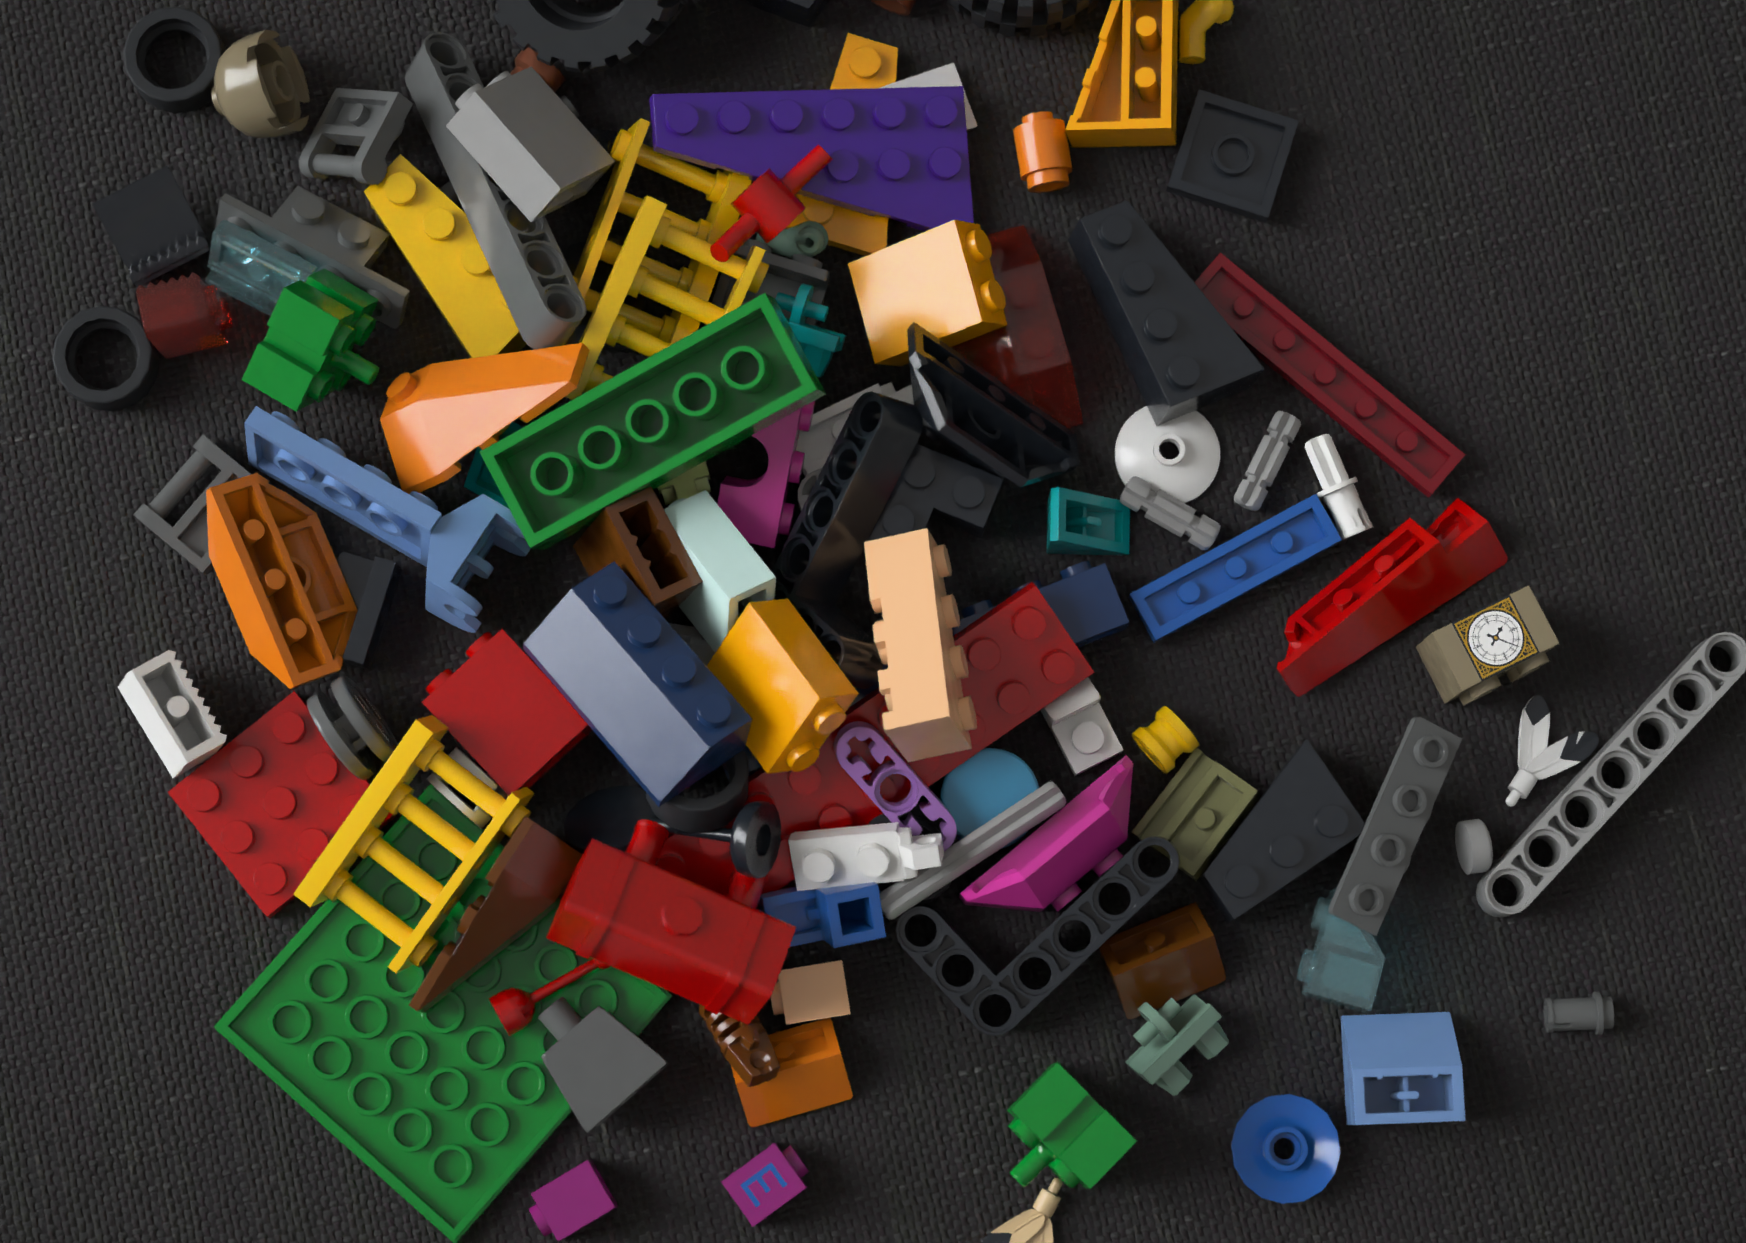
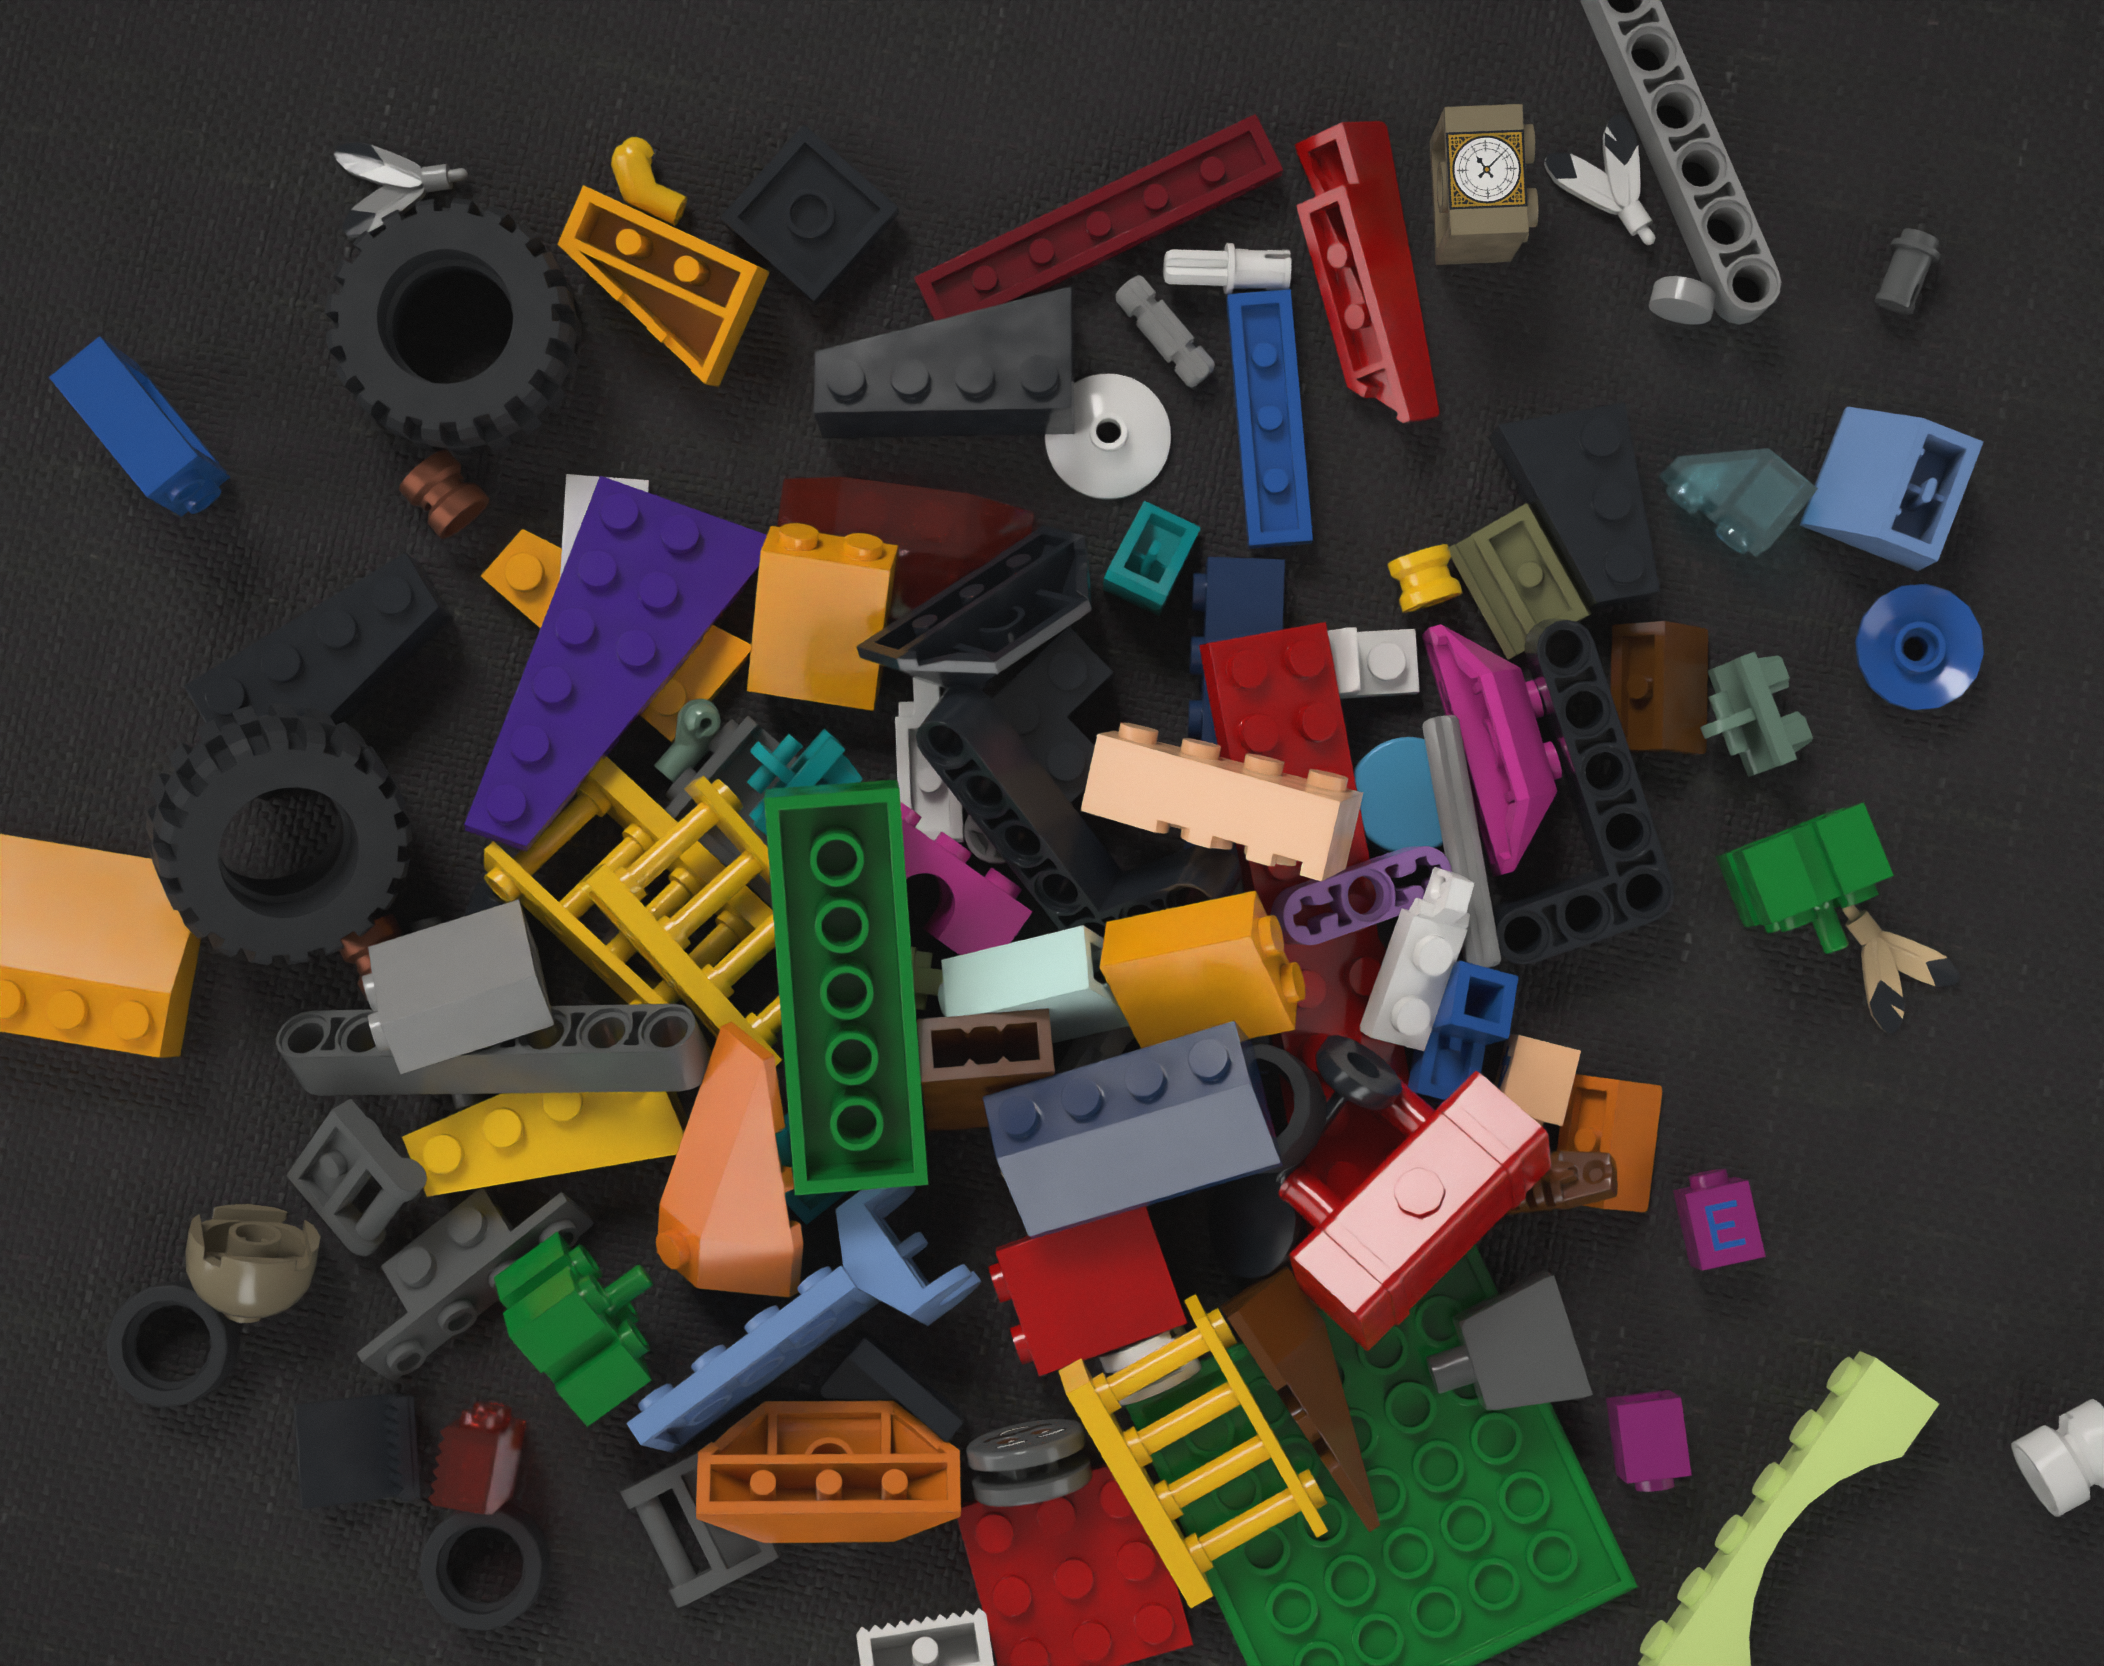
camera: 65 degrees left, 5 degrees up
(252, 267) = (458, 1354): clear light blue plate -> none
(517, 1007) = (1414, 1412): red hinge -> none
(769, 204) = (648, 749): red piece -> none
(1043, 152) = (713, 420): orange brick -> none
(1170, 513) = (1177, 462): light grey axle -> none
(1394, 825) = (1632, 373): dark grey bracket -> none

